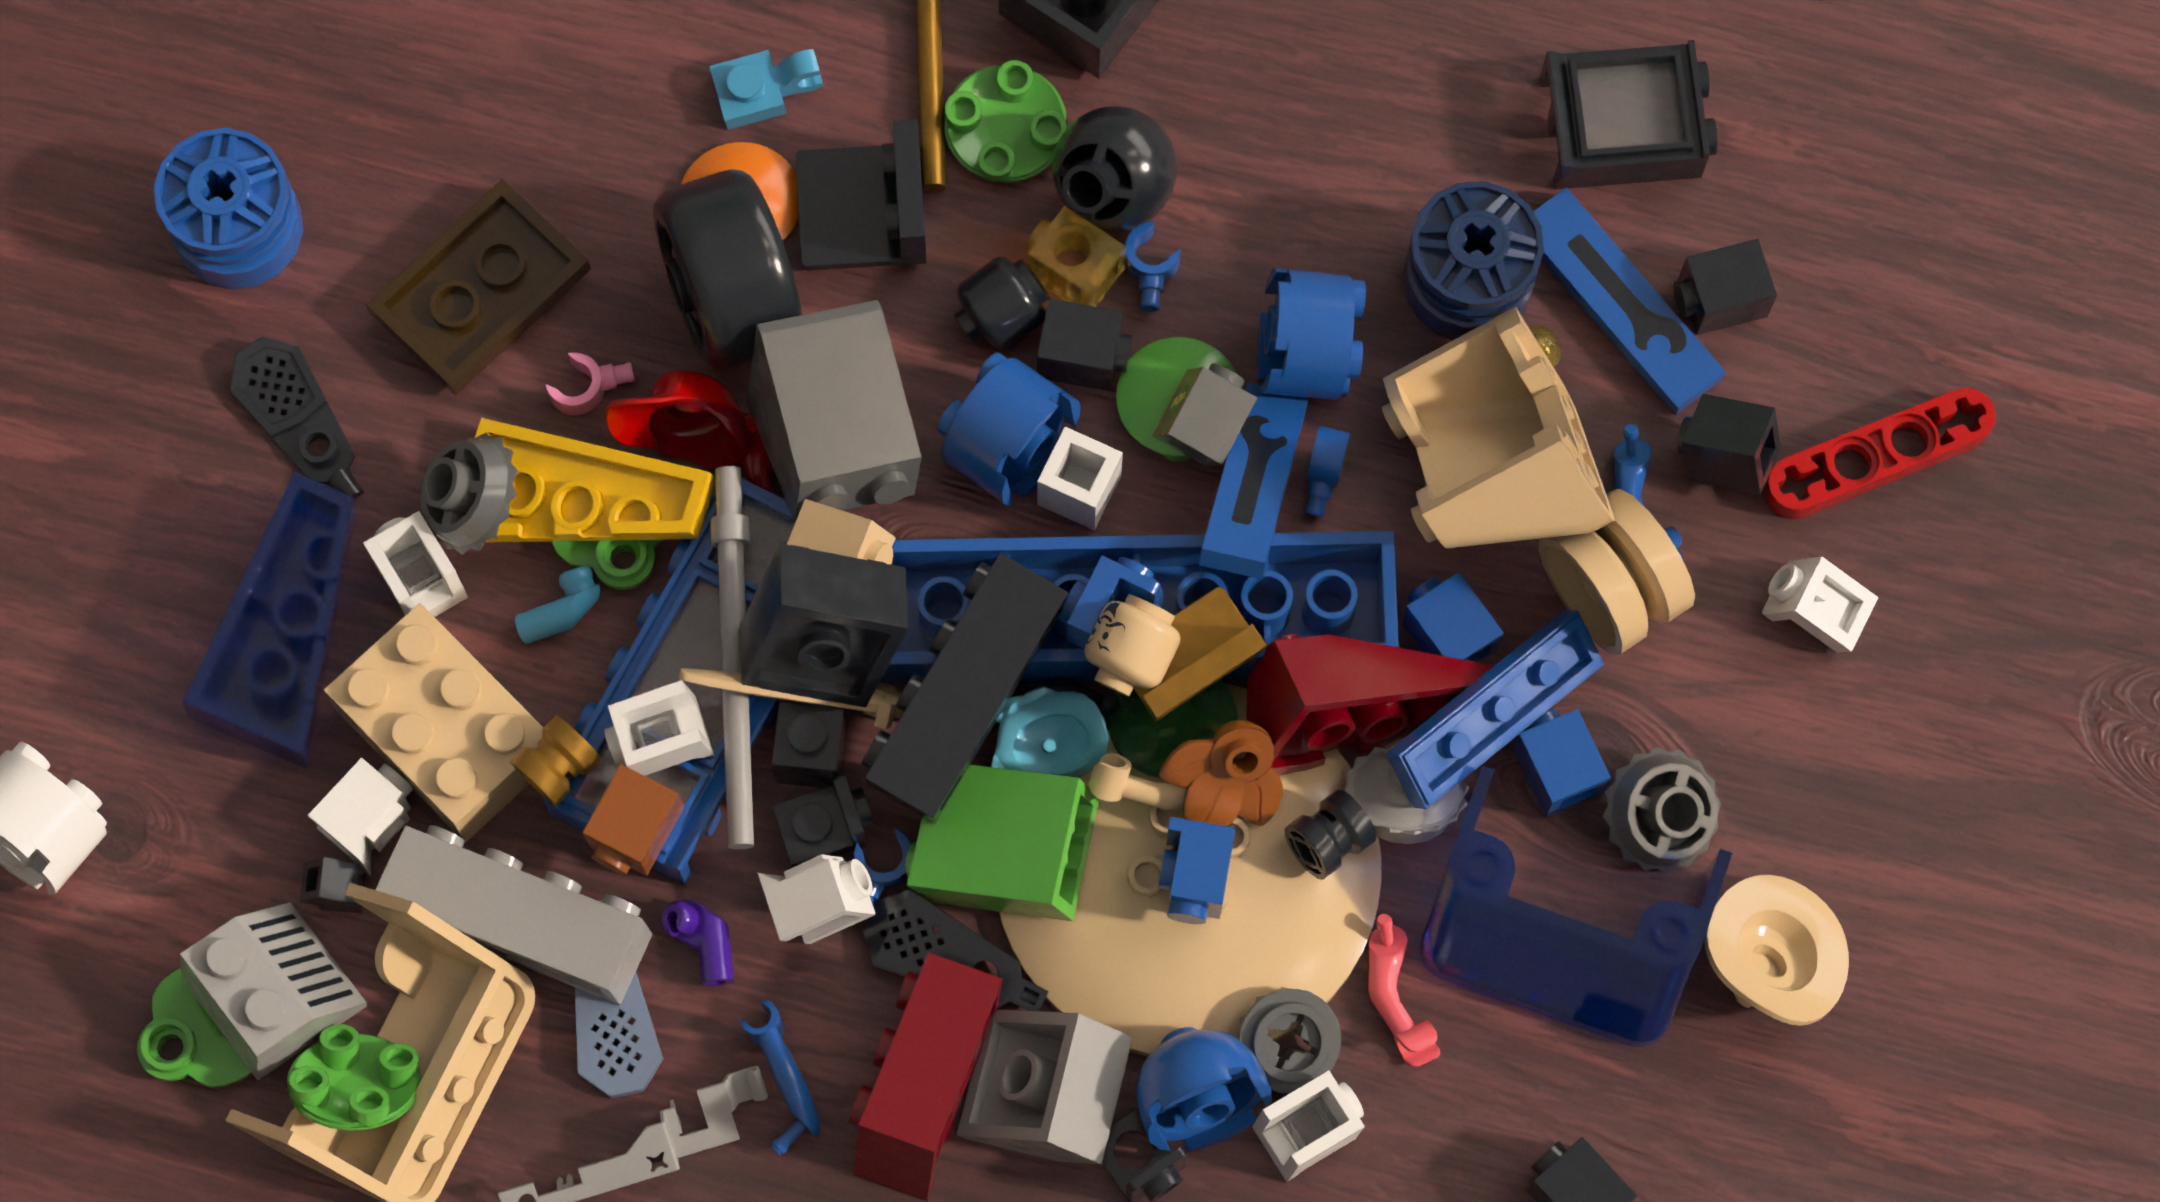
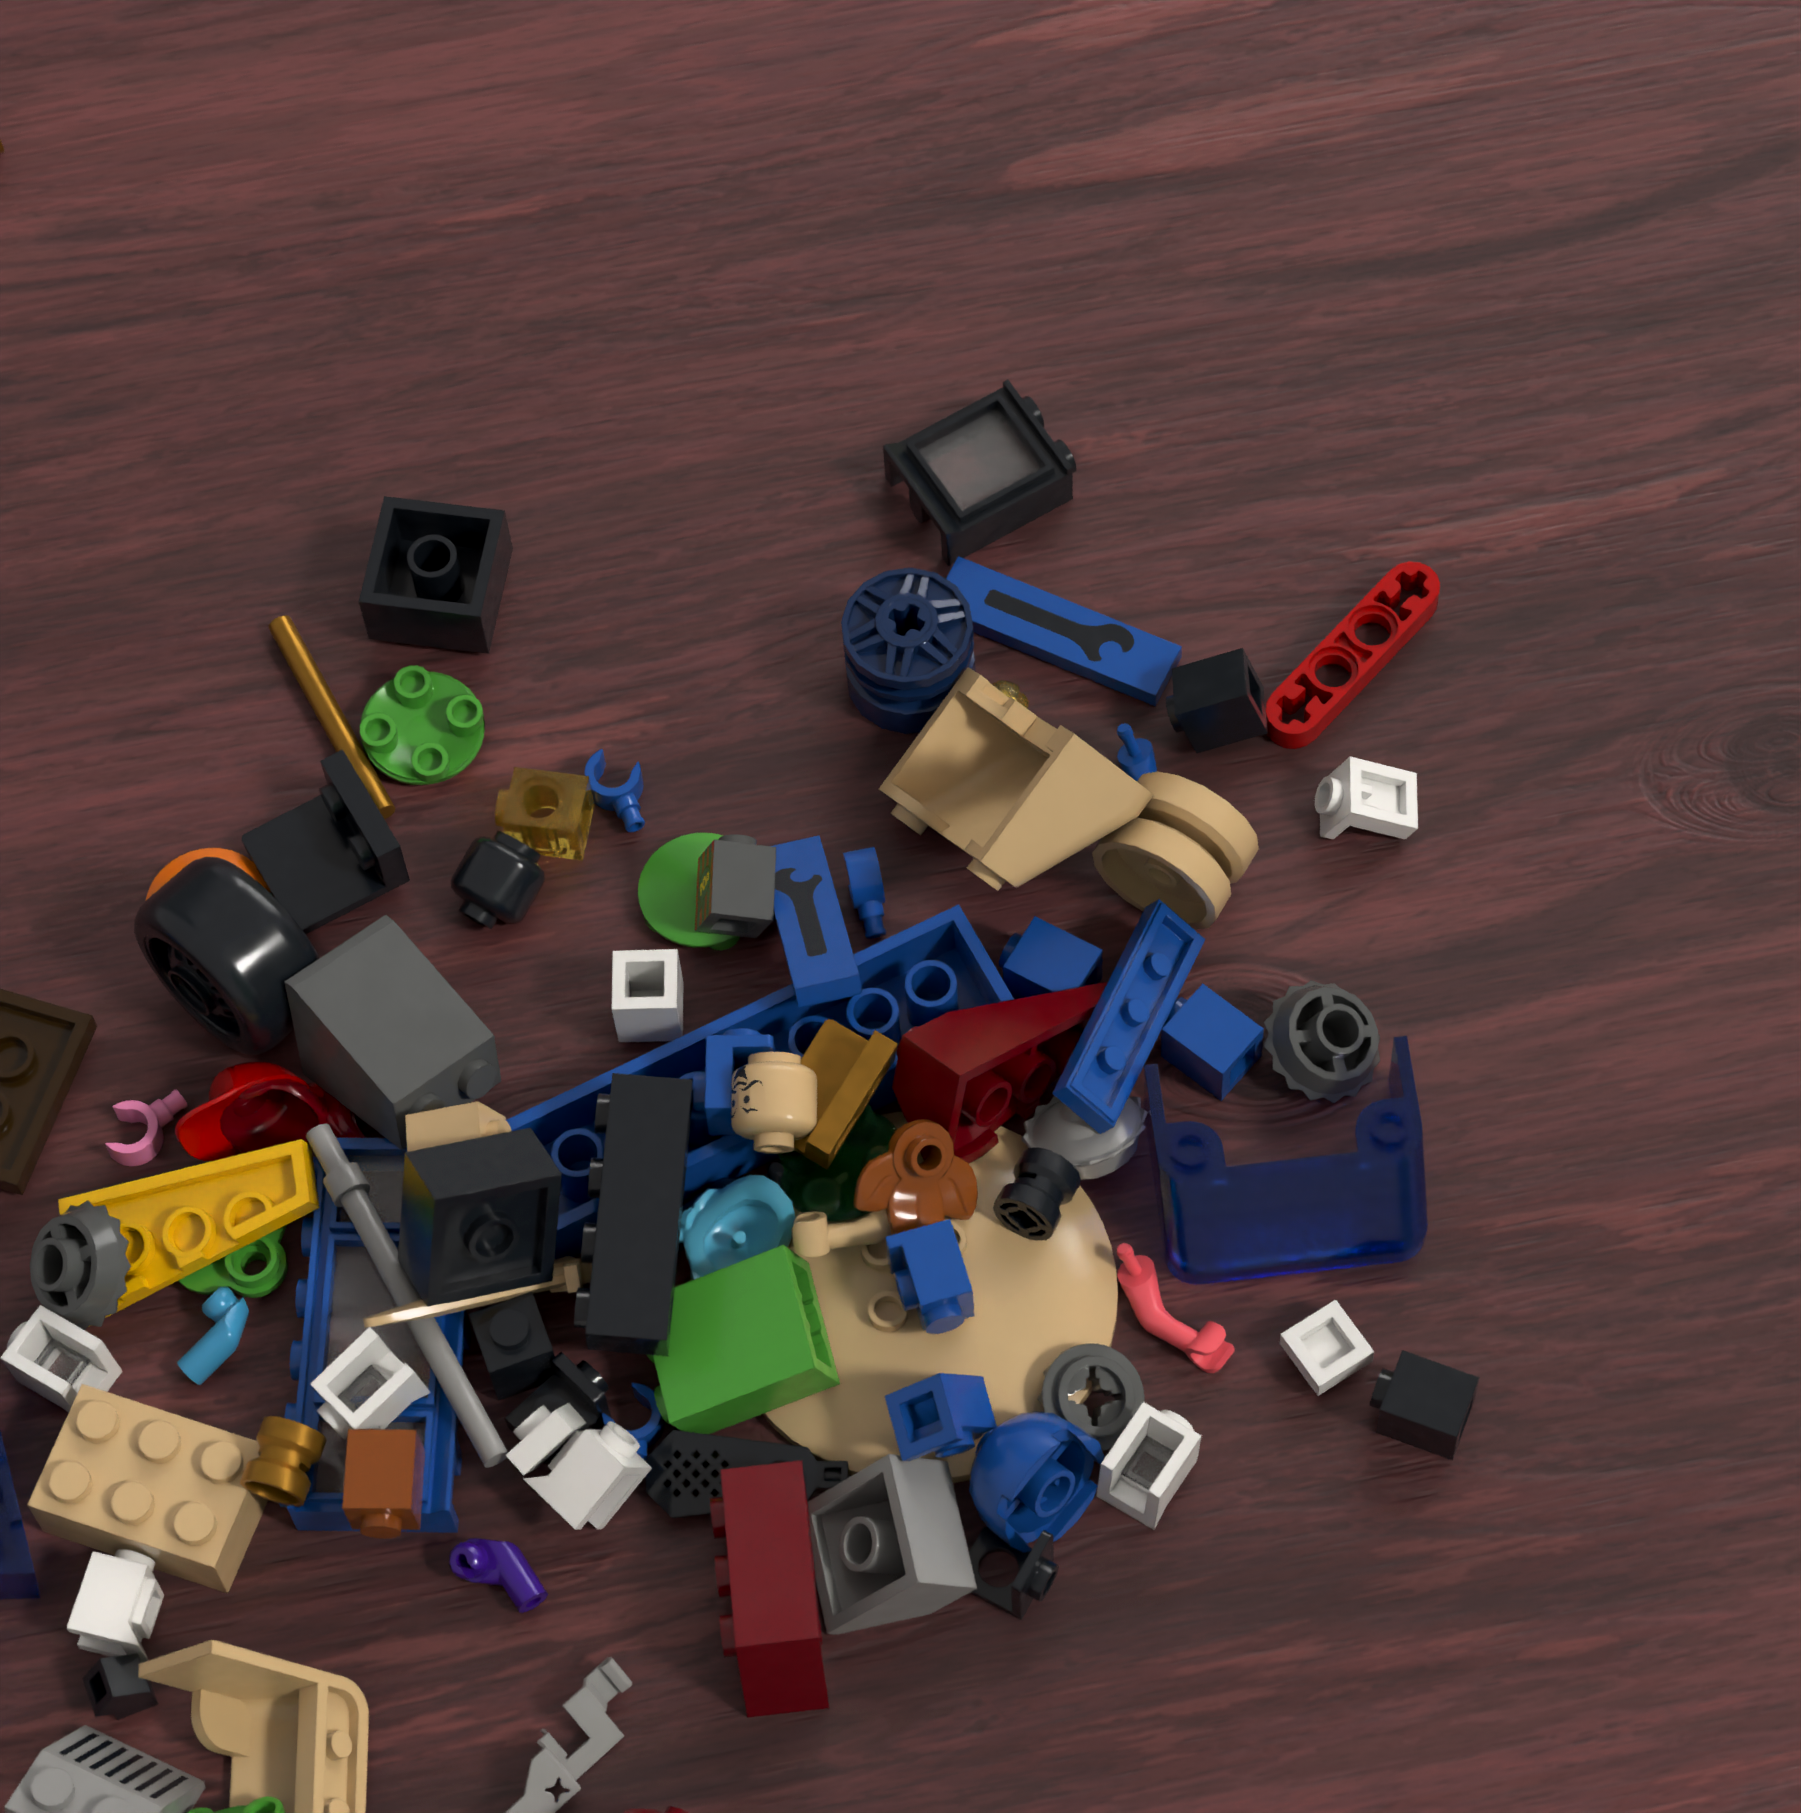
camera: 20 degrees left, 10 degrees down
(519, 915) = (330, 1622): light grey brick -> none
(588, 1015) = (435, 1665): sand blue piece -> none
(754, 88) = (175, 800): dark azure plate -> none
(786, 1076) = (642, 1652): blue piece -> none
(792, 843) = (543, 1435): none -> white plate
(1006, 428) = (558, 981): blue brick -> none
(1082, 345) = (591, 883): black brick -> none
(1115, 168) = (544, 713): black brick -> none
(1141, 999) = (940, 1415): none -> blue brick
(1308, 334) = (794, 776): blue brick -> none
(1520, 1095) = (1326, 1347): none -> white plate
(1725, 287) = (1144, 575): black brick -> none
(1778, 949) = (1490, 1109): tan hat -> none

